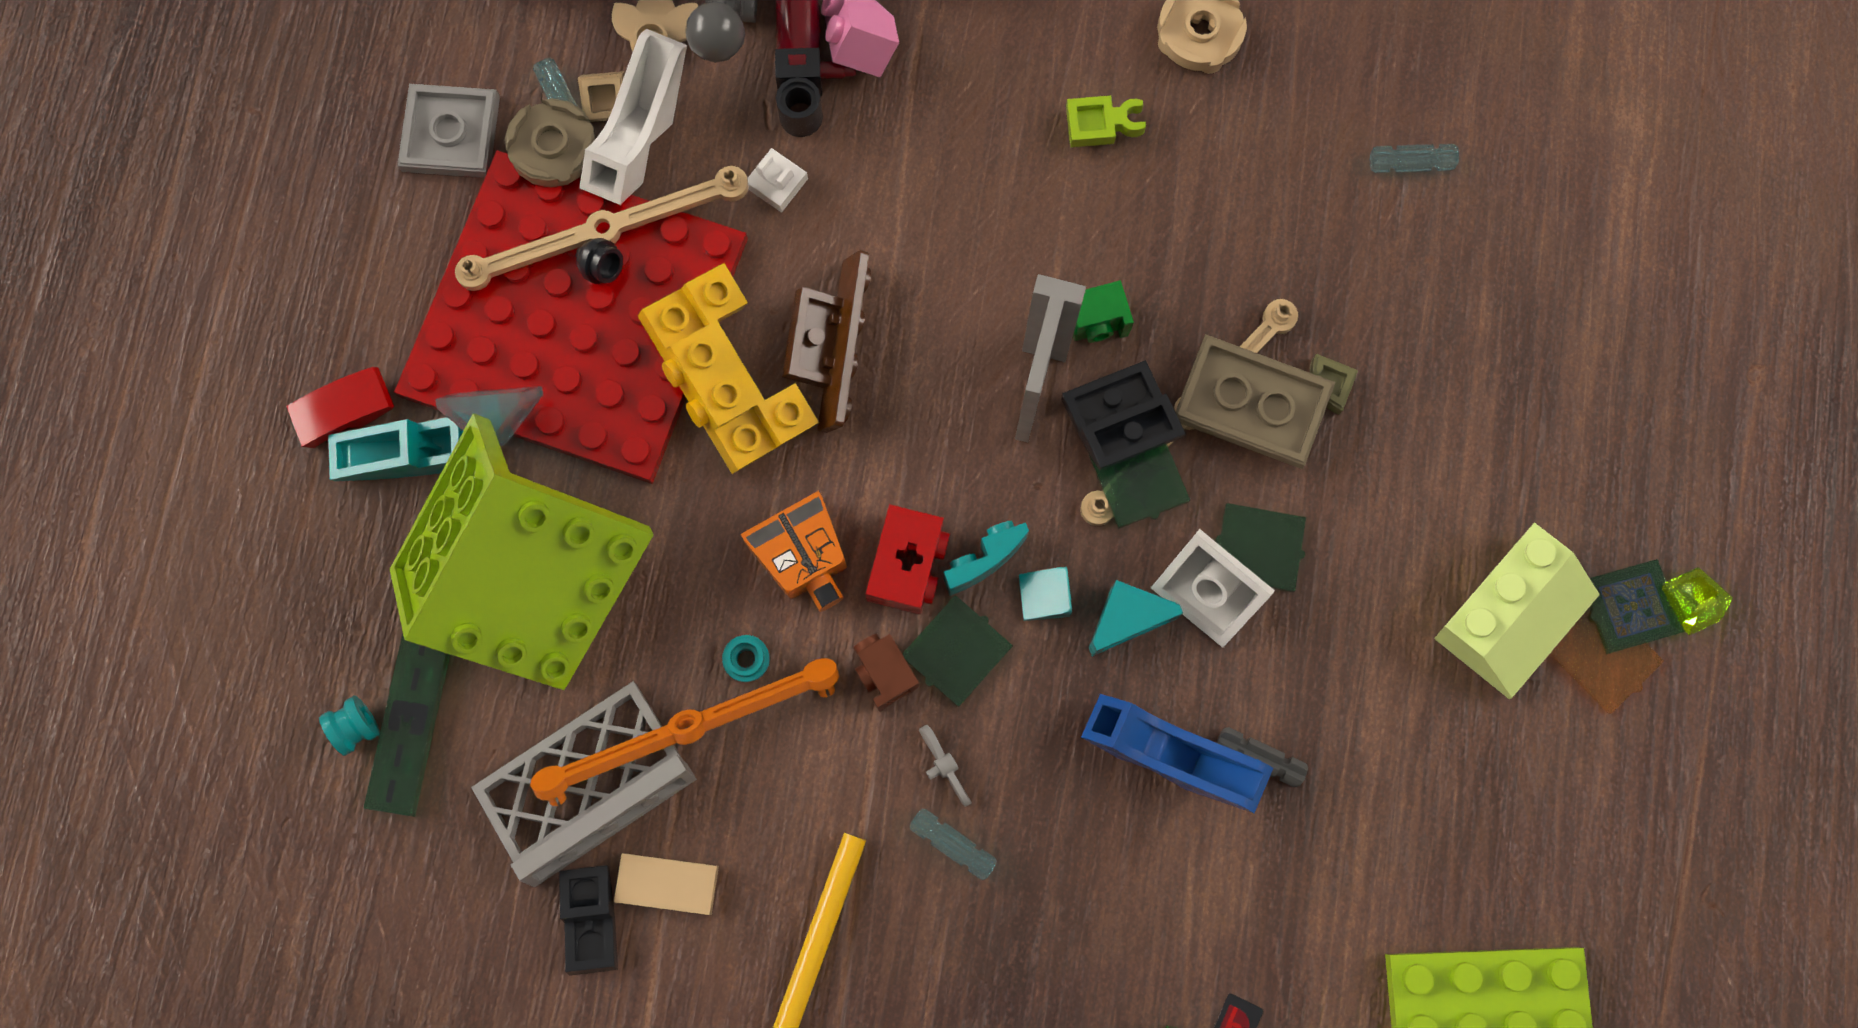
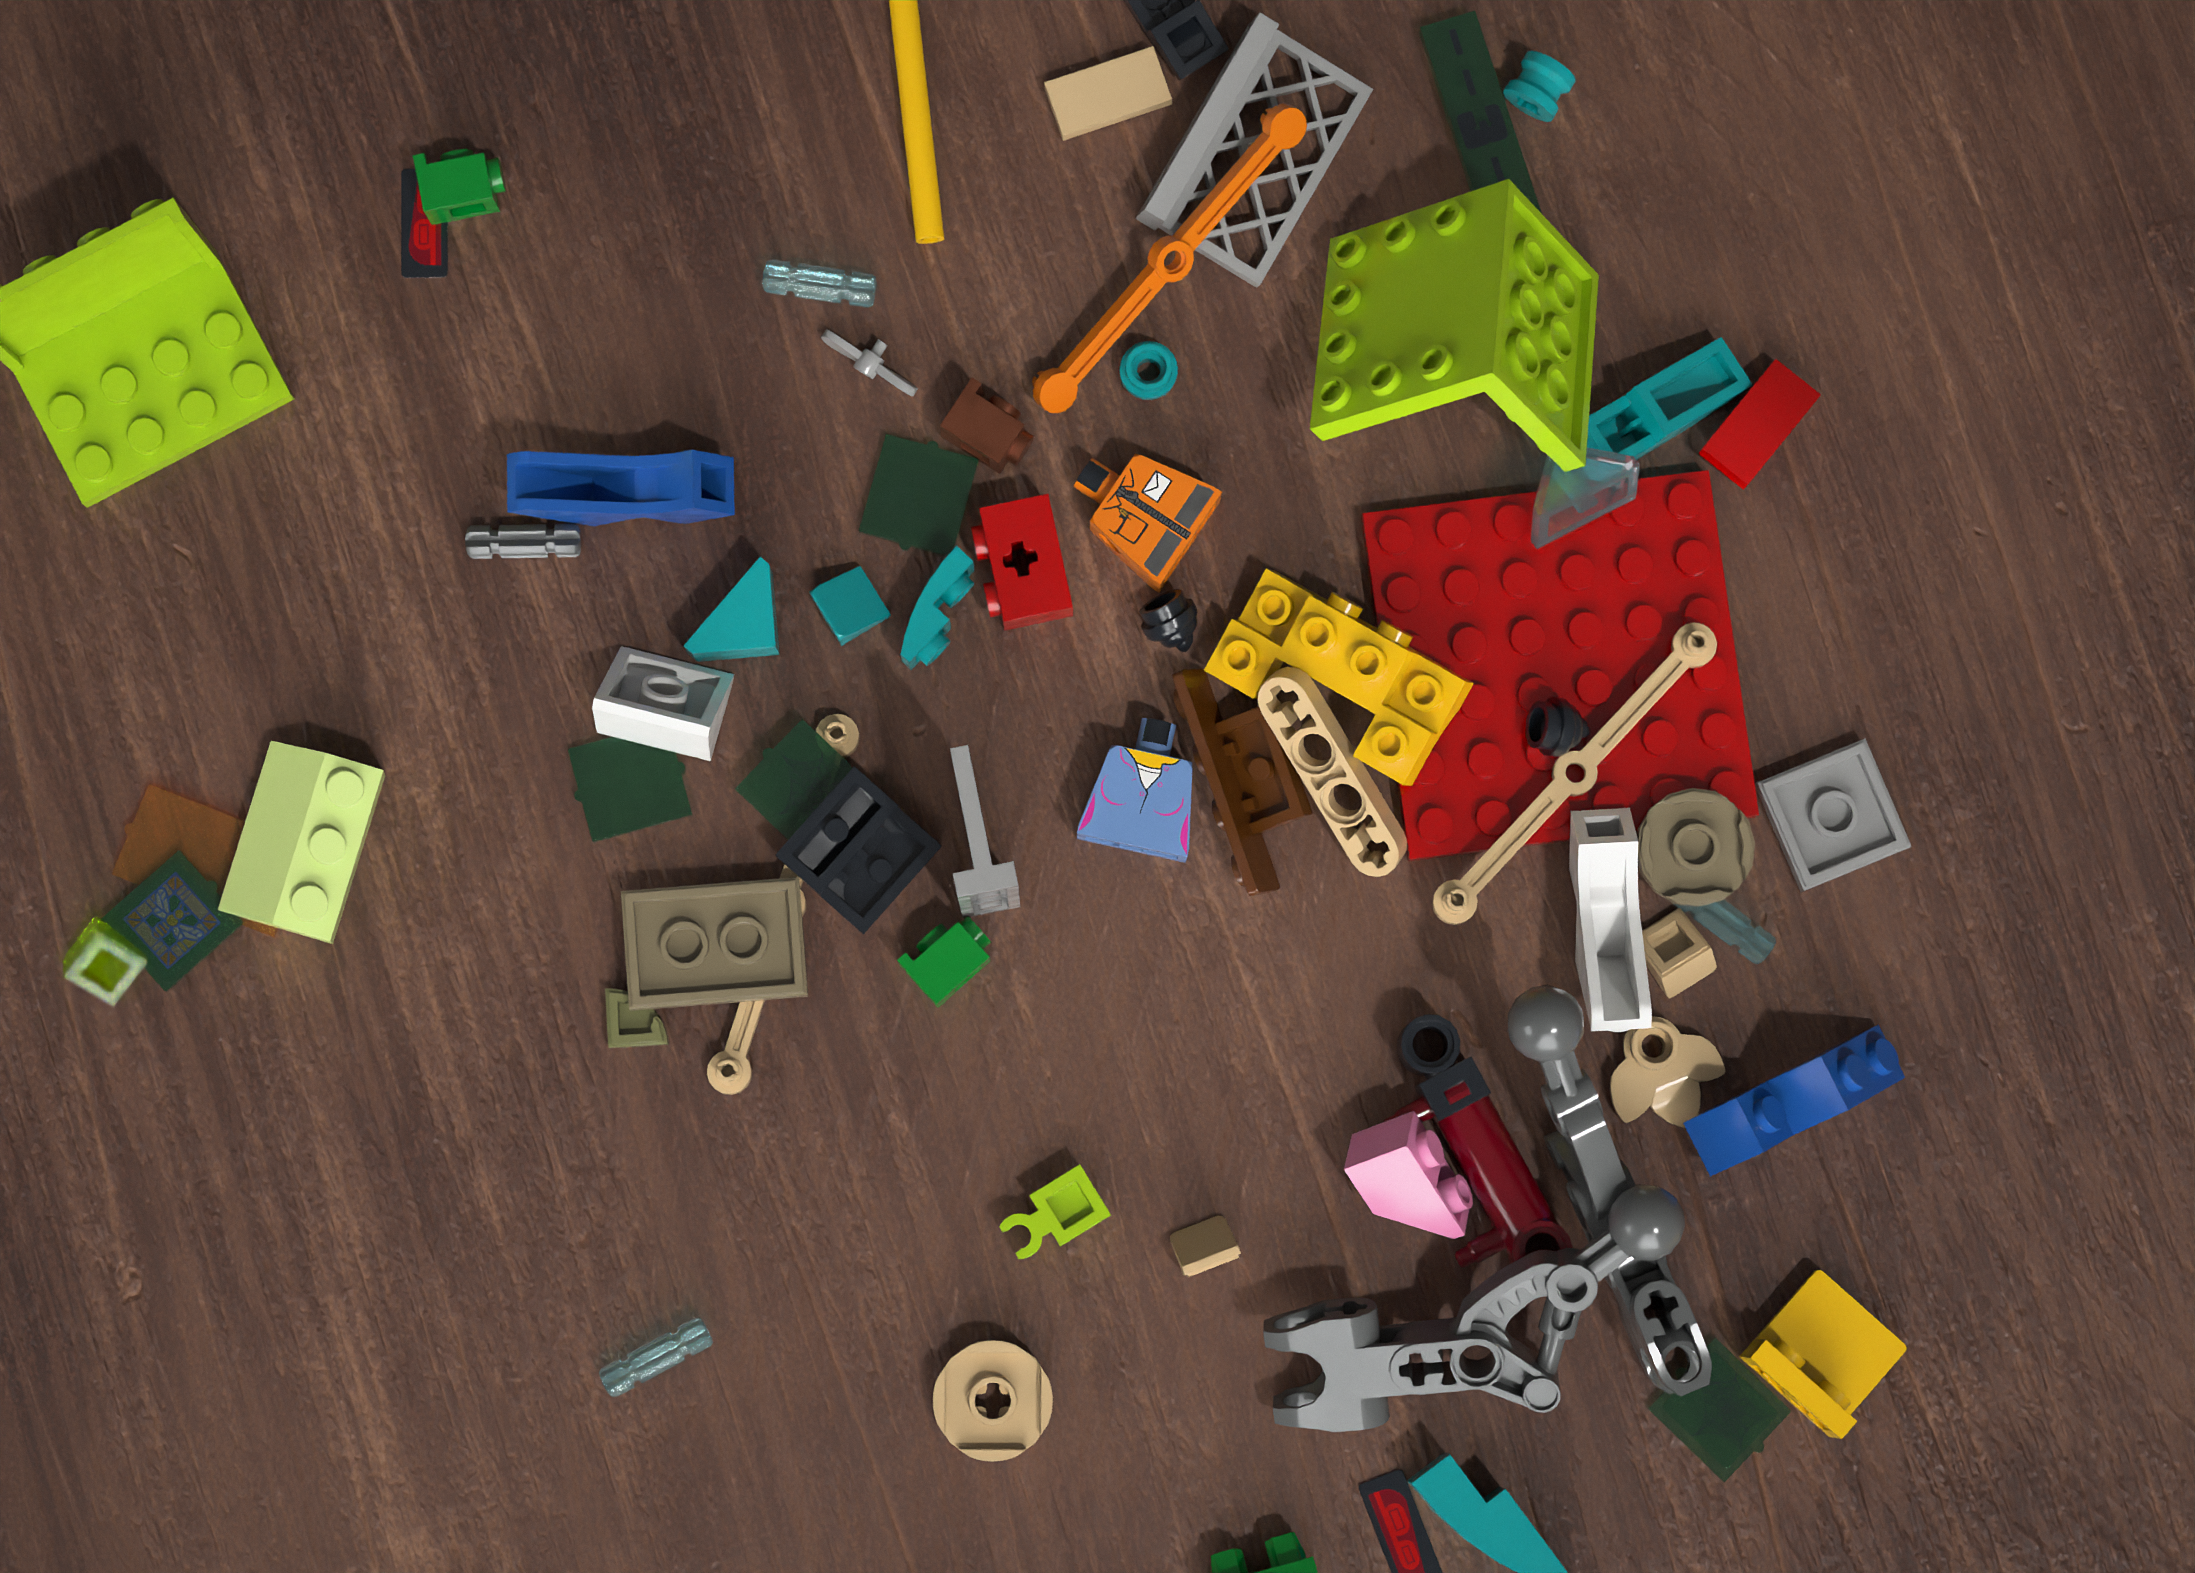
camera: 150 degrees right, 5 degrees up
(774, 308) = (1323, 775): none -> tan beam
(776, 180) = (1410, 947): white tile -> none
(824, 472) = (1170, 620): none -> black plate
(907, 357) = (1142, 797): none -> medium blue torso
(1014, 53) = (1204, 1245): none -> tan slope

